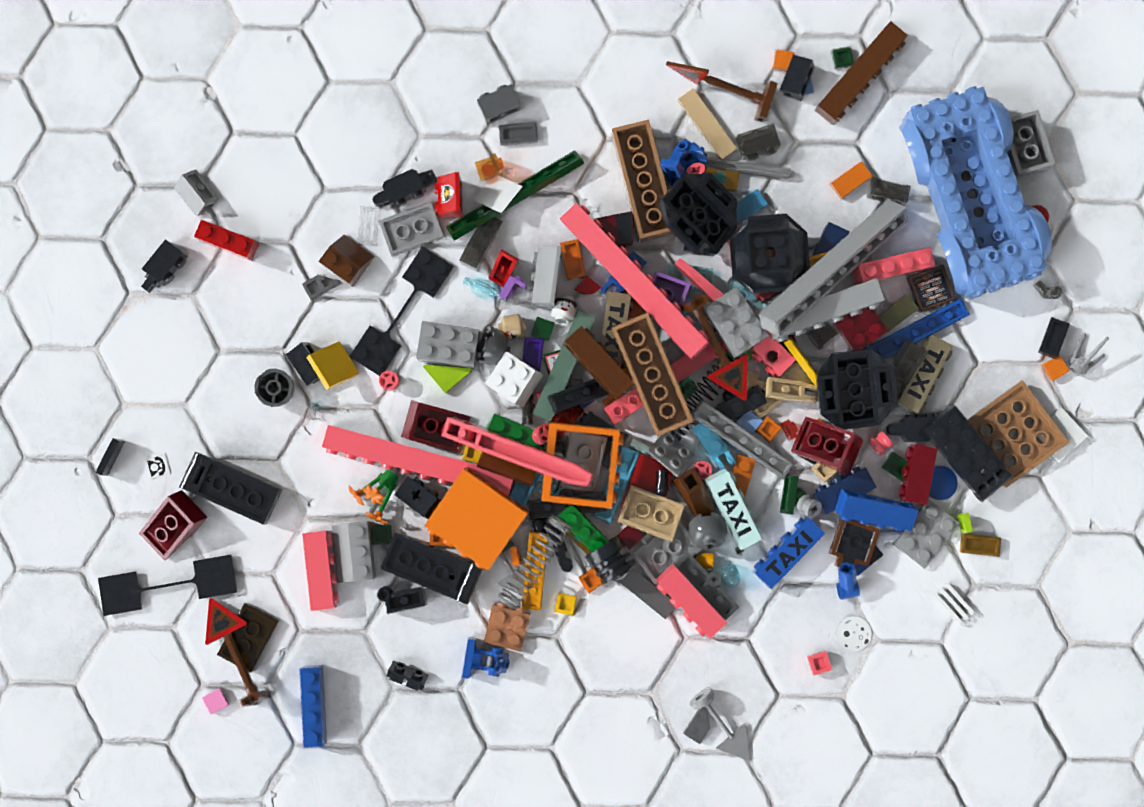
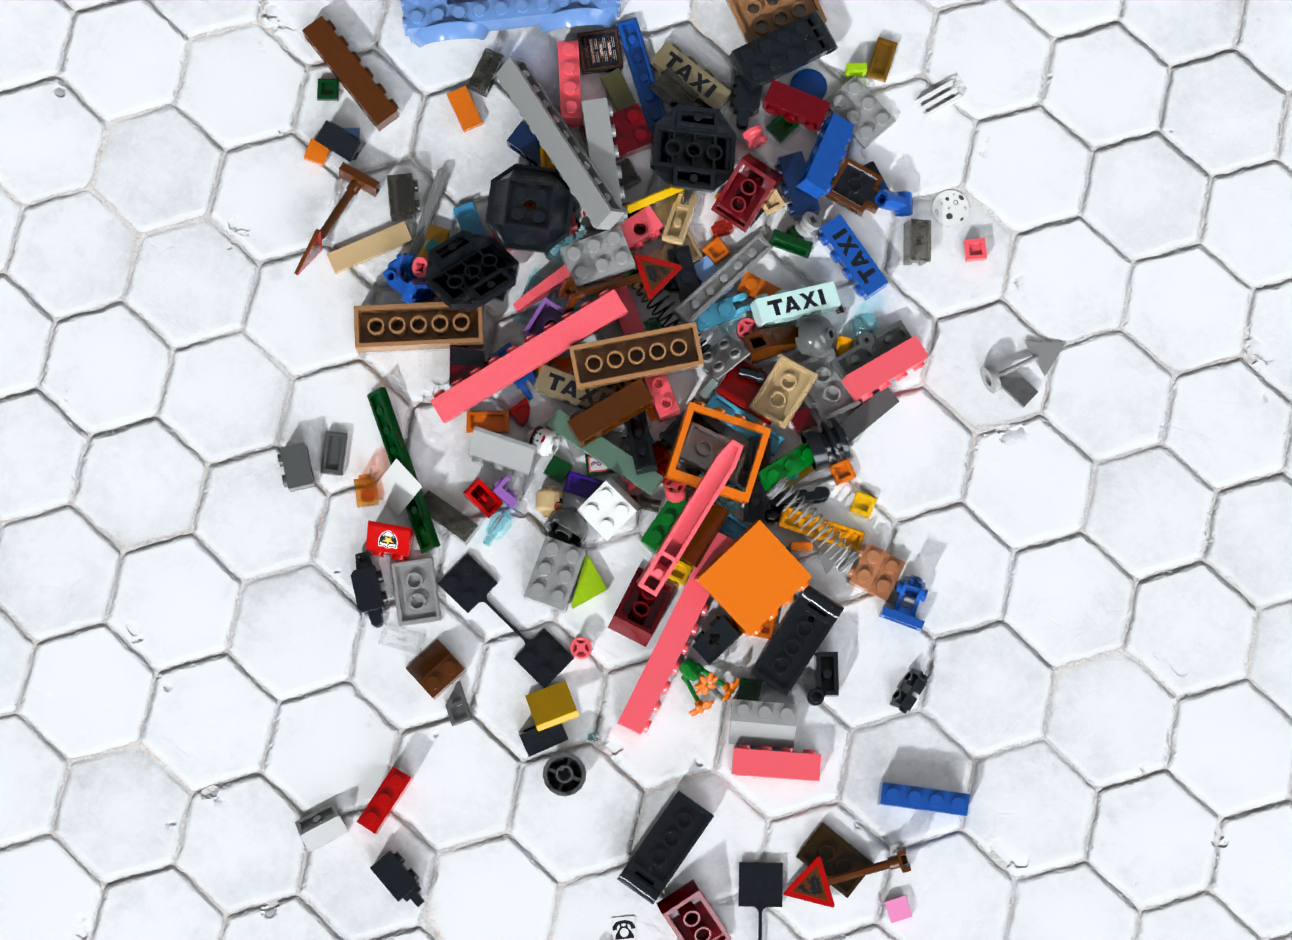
camera: 85 degrees left, 5 degrees down
(815, 608) = (917, 242): none -> clear smoke hinge

